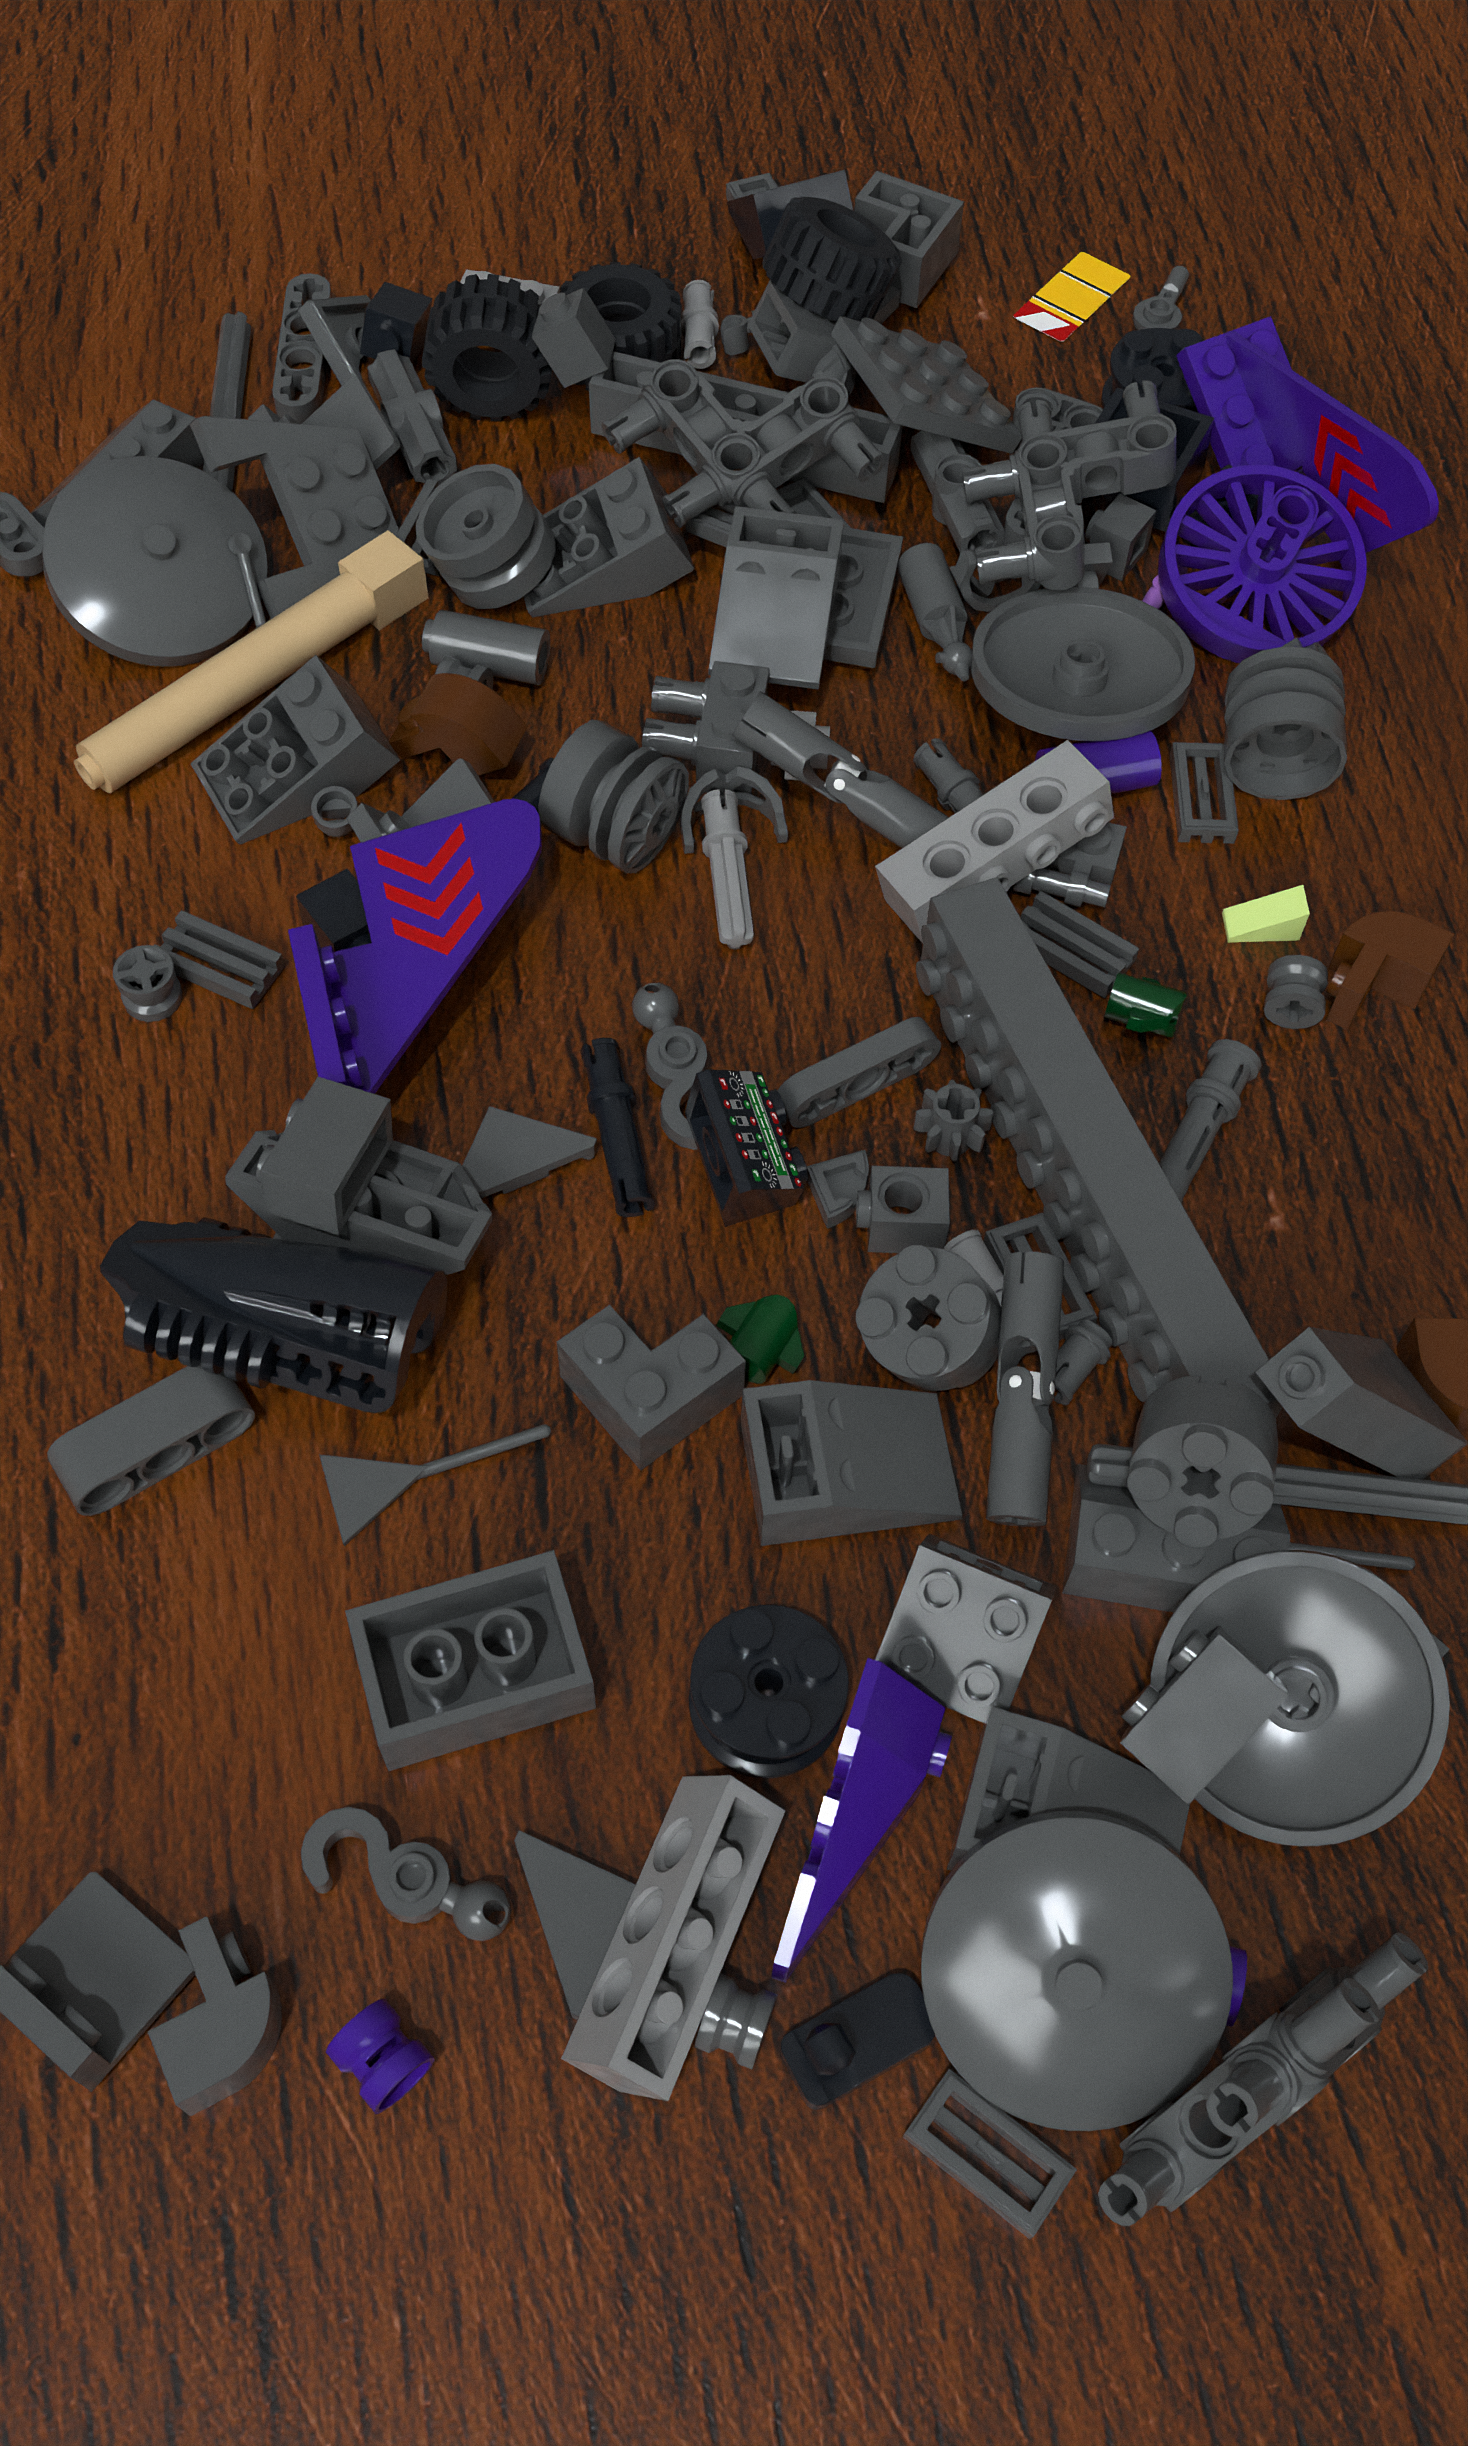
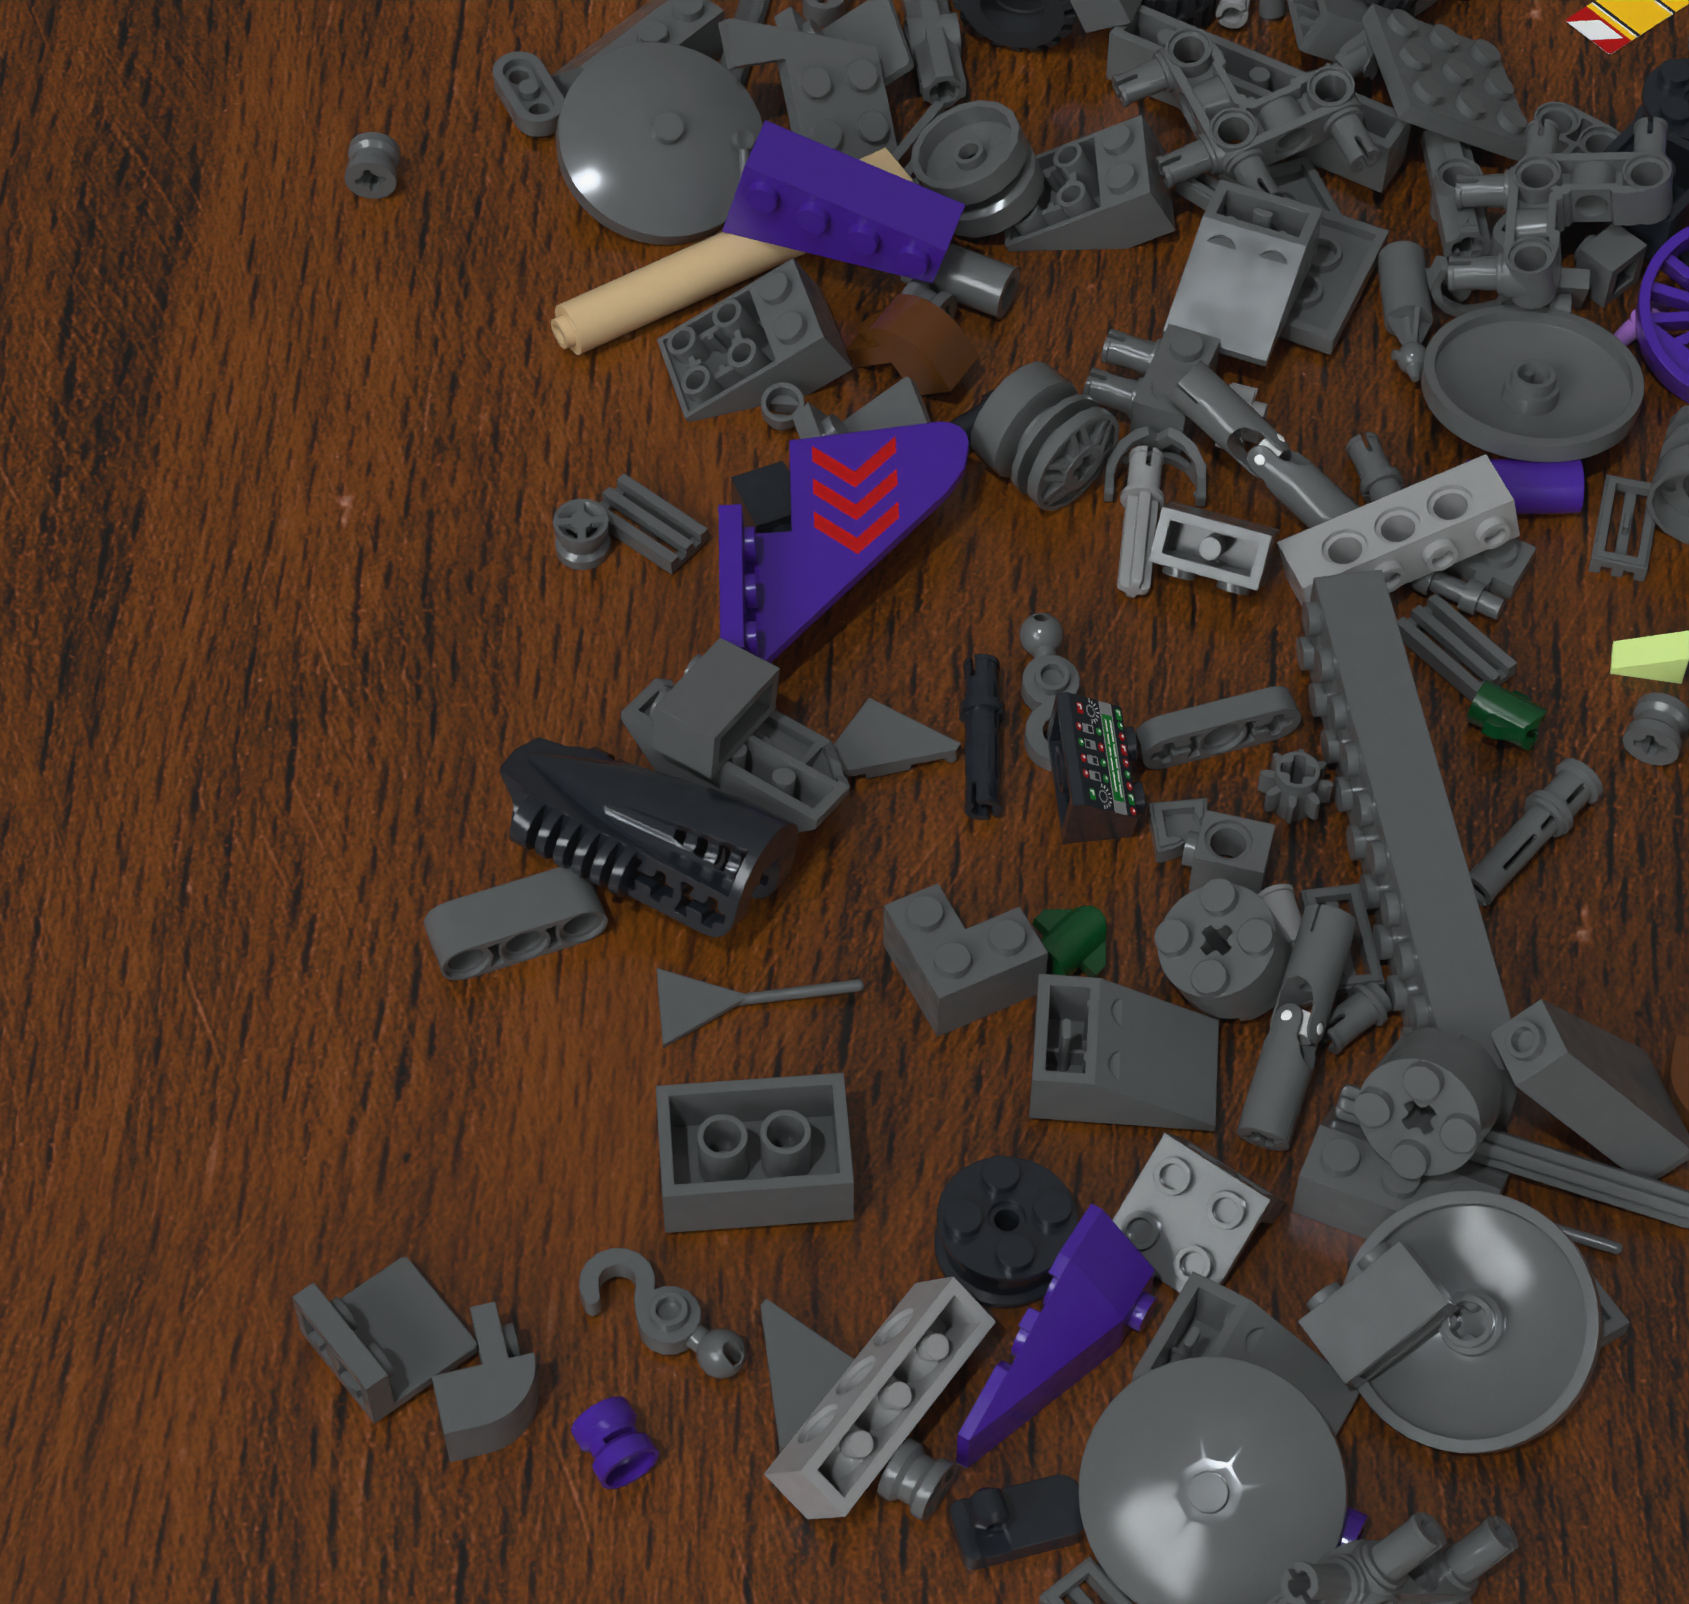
camera: 15 degrees right, 5 degrees down
(352, 594) = (839, 207): none -> dark purple wedge
(810, 882) = (1213, 546): none -> brick

